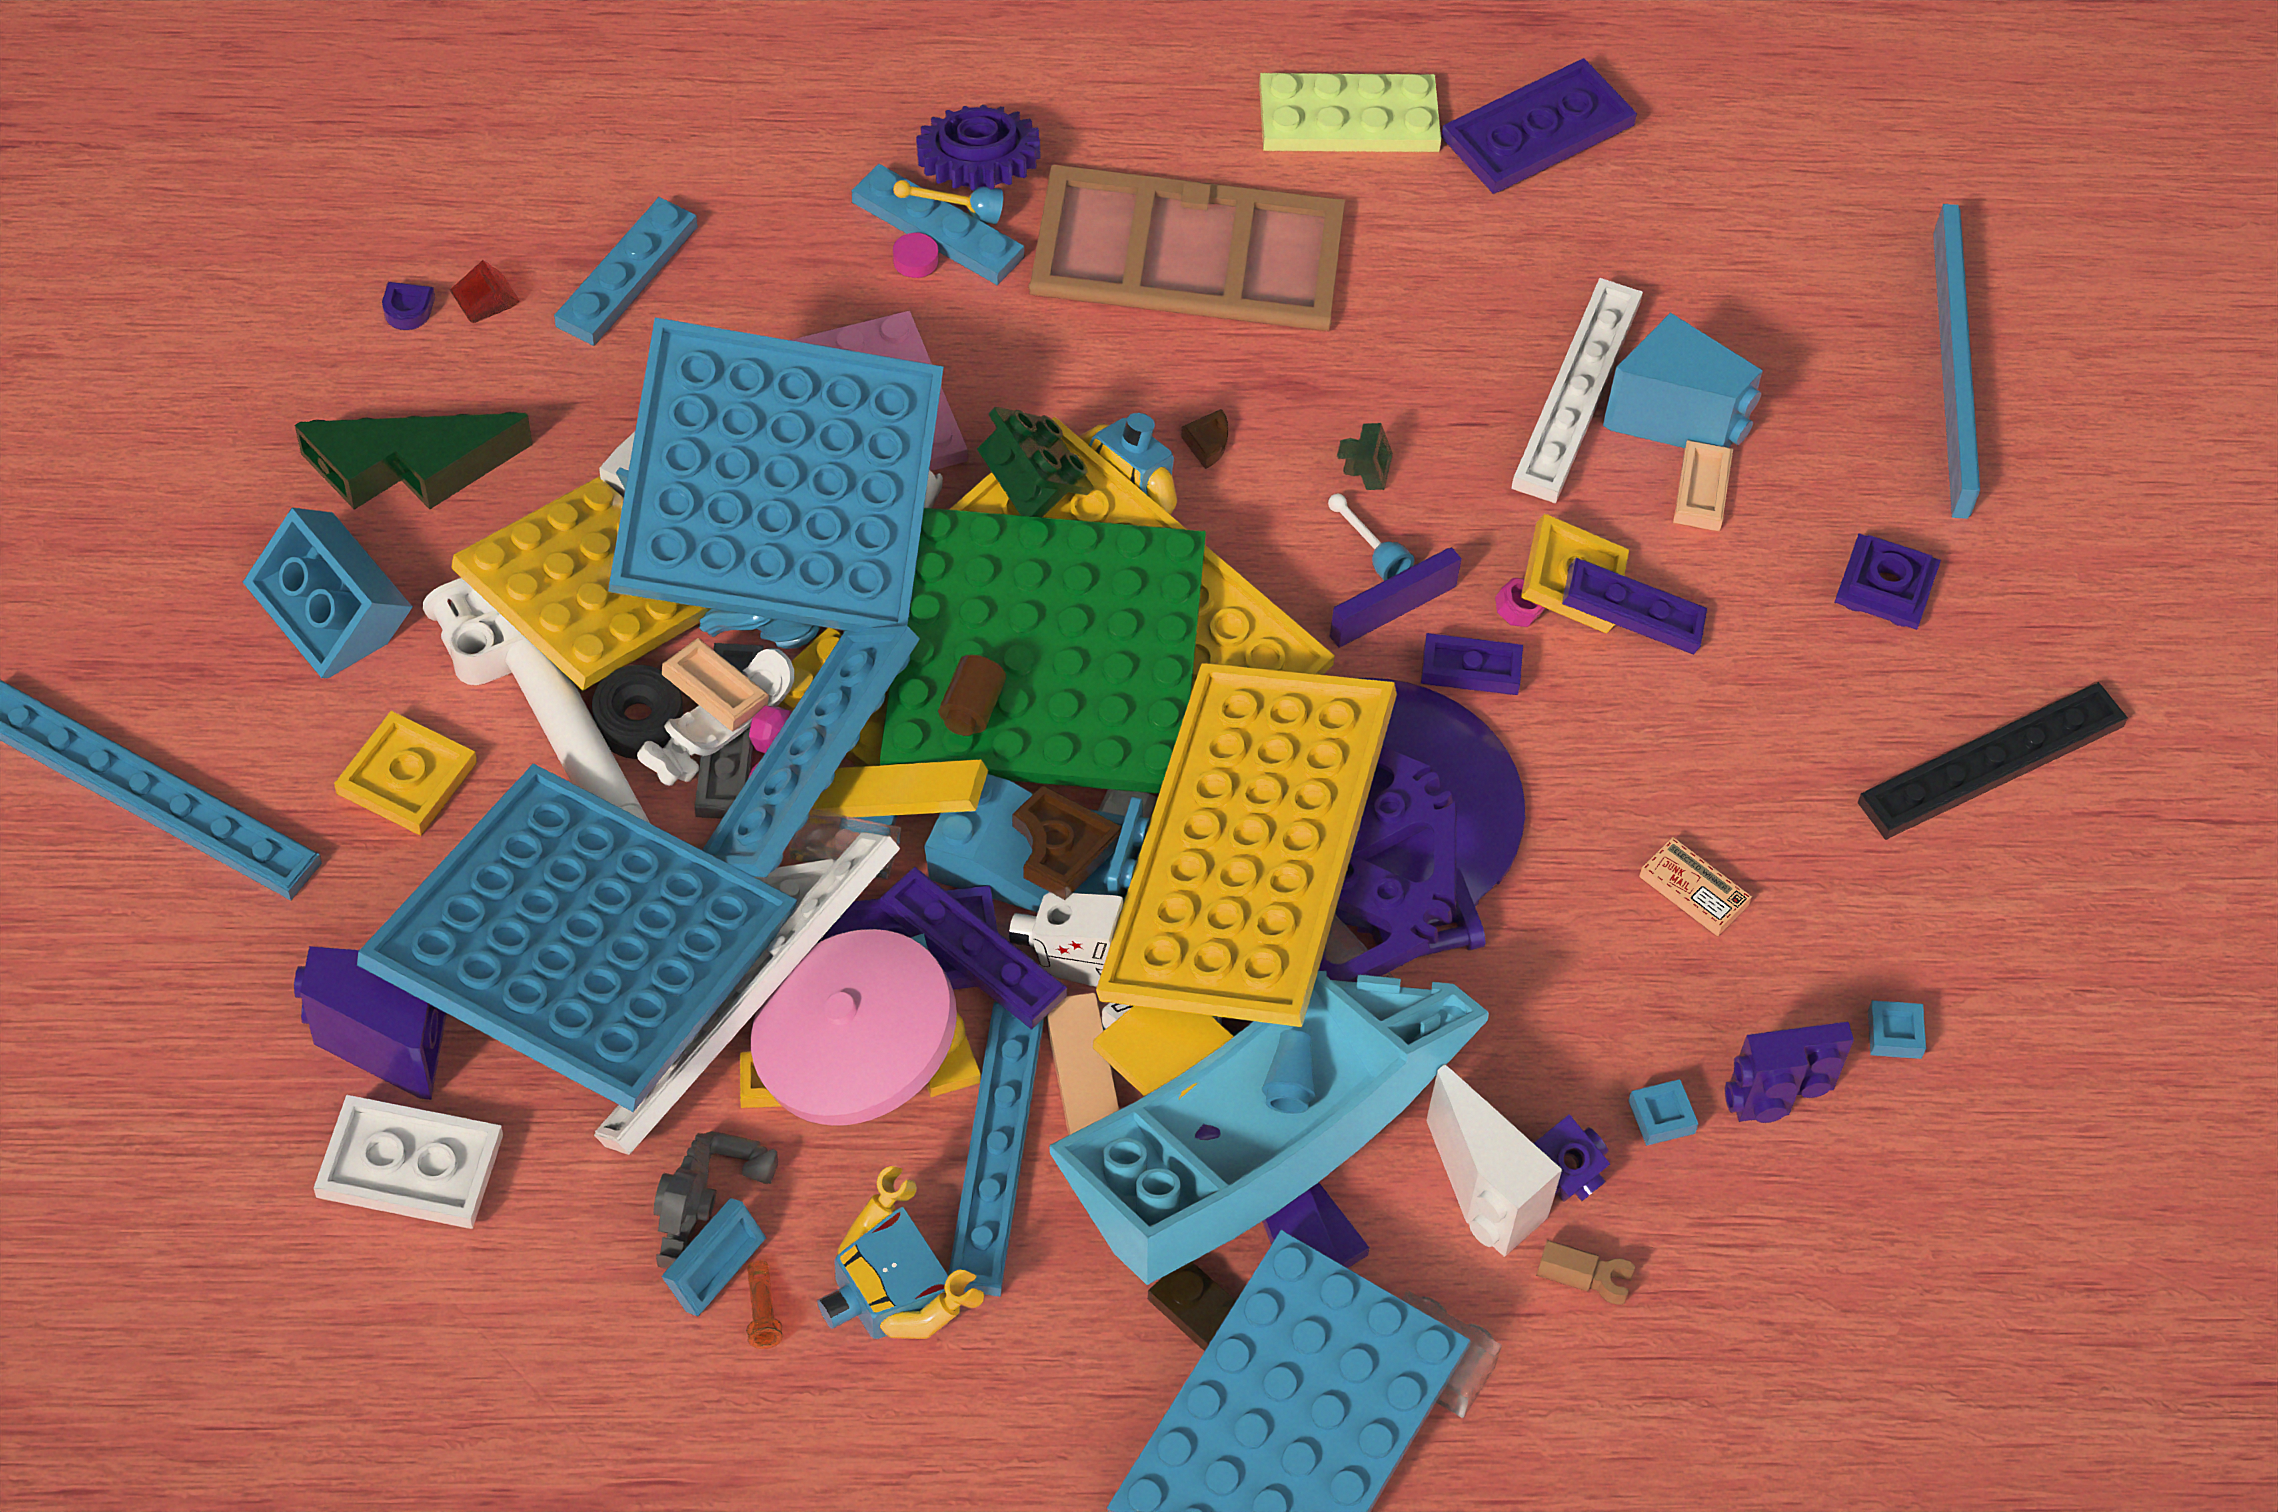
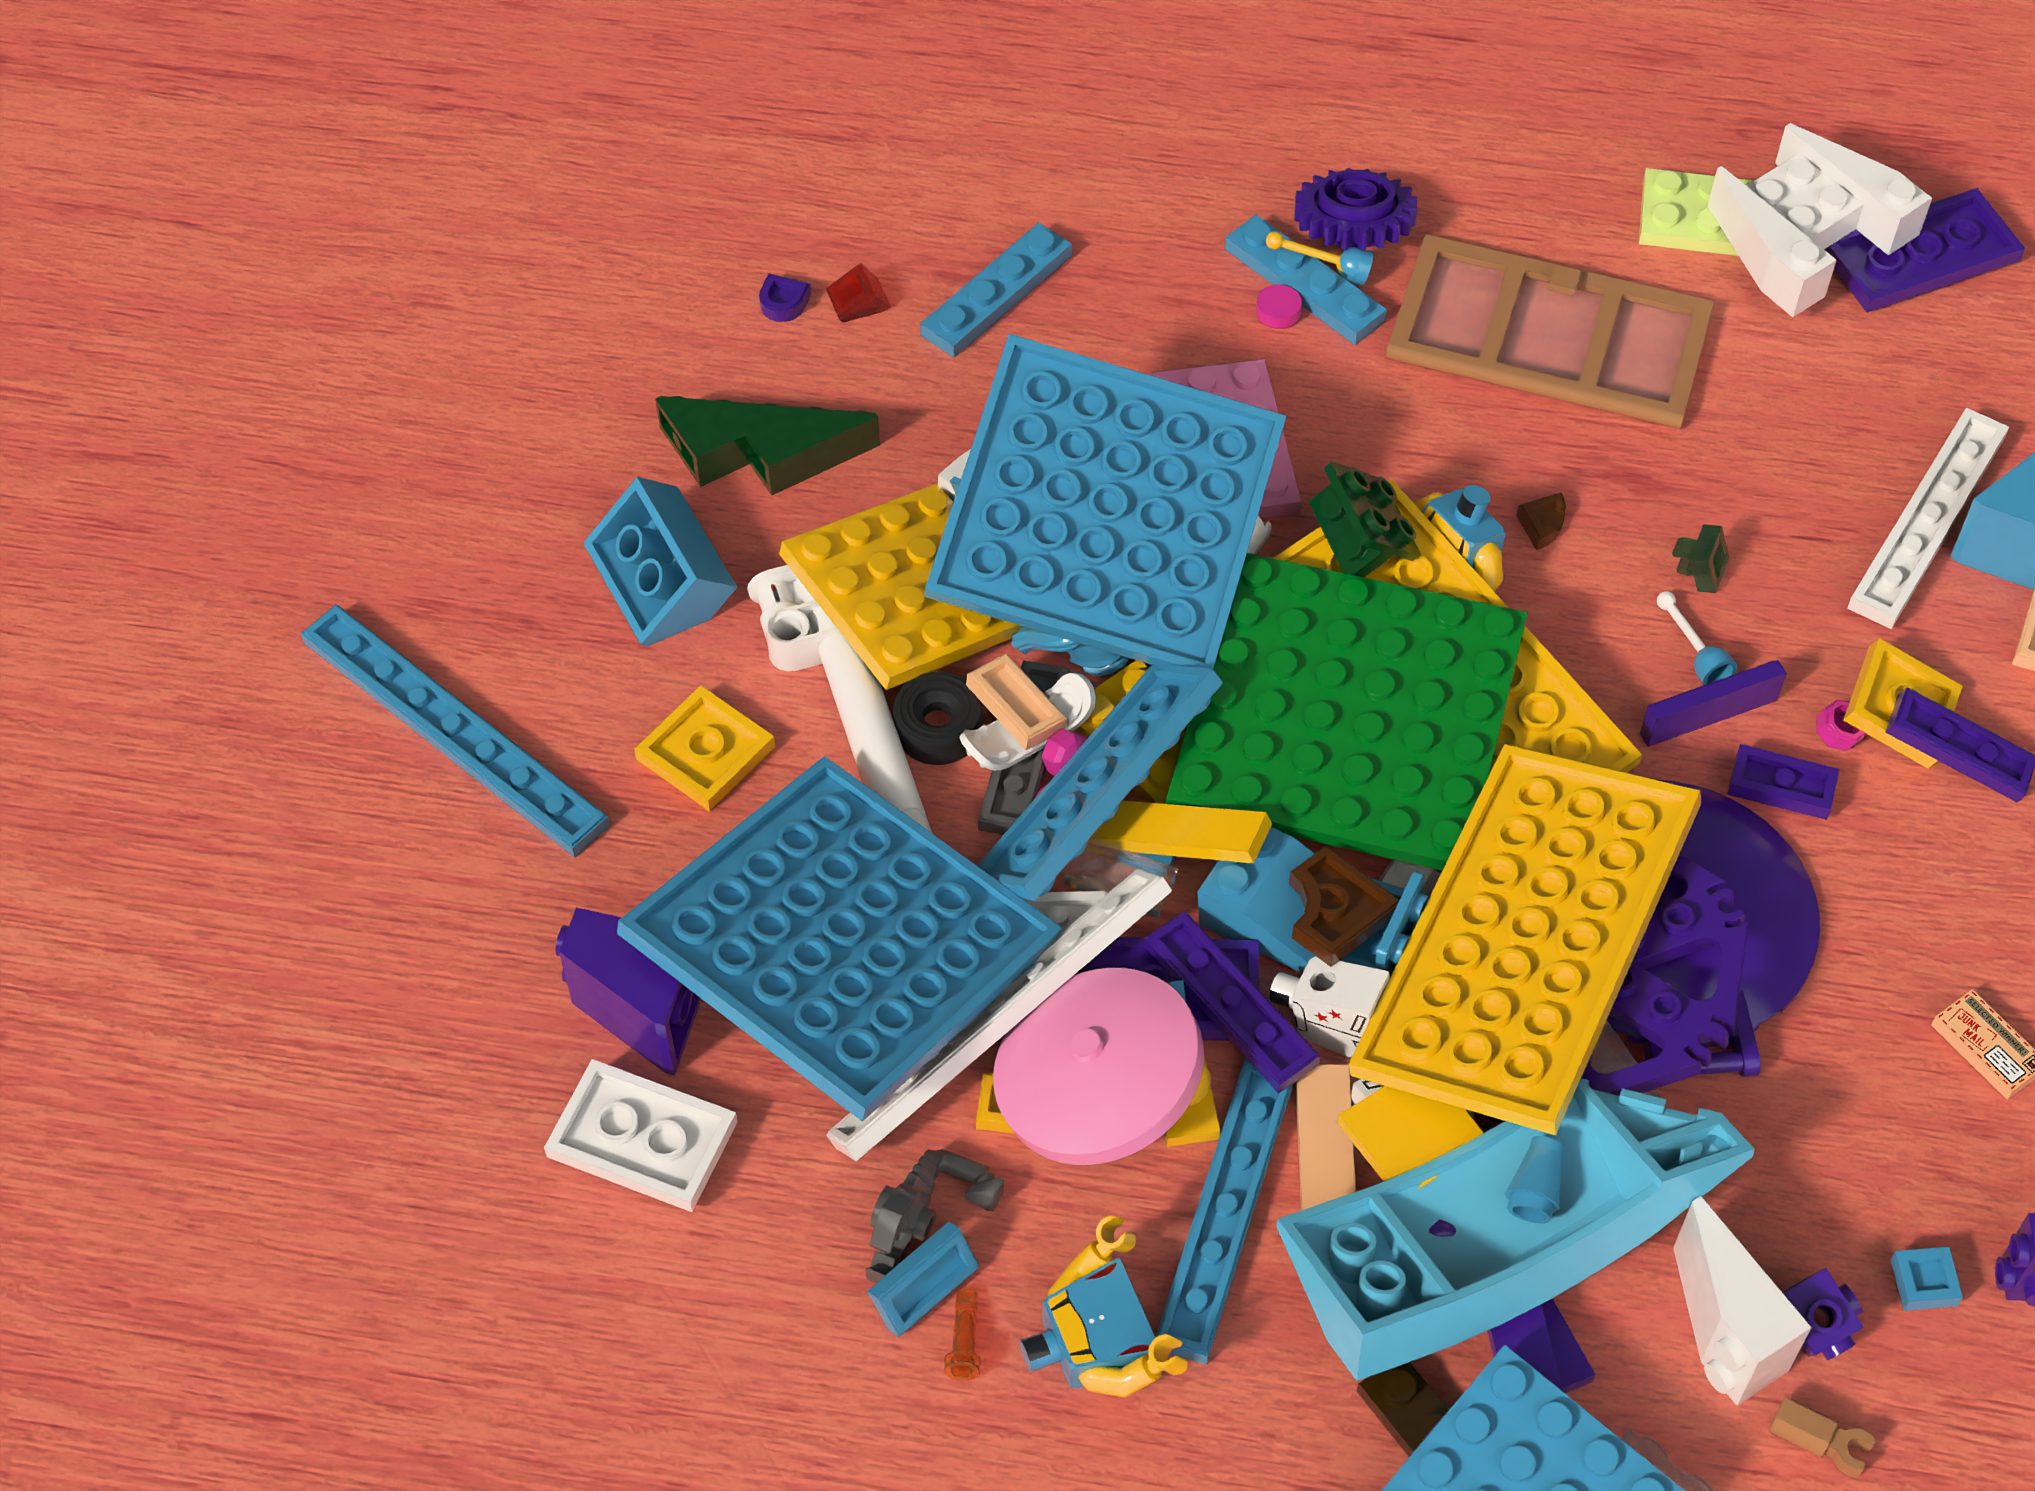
camera: 15 degrees right, 0 degrees up
(669, 762) = (959, 772): white piece -> none
(972, 695) = (1266, 746): reddish brown brick -> none
(1423, 95) = (1806, 206): none -> white wedge

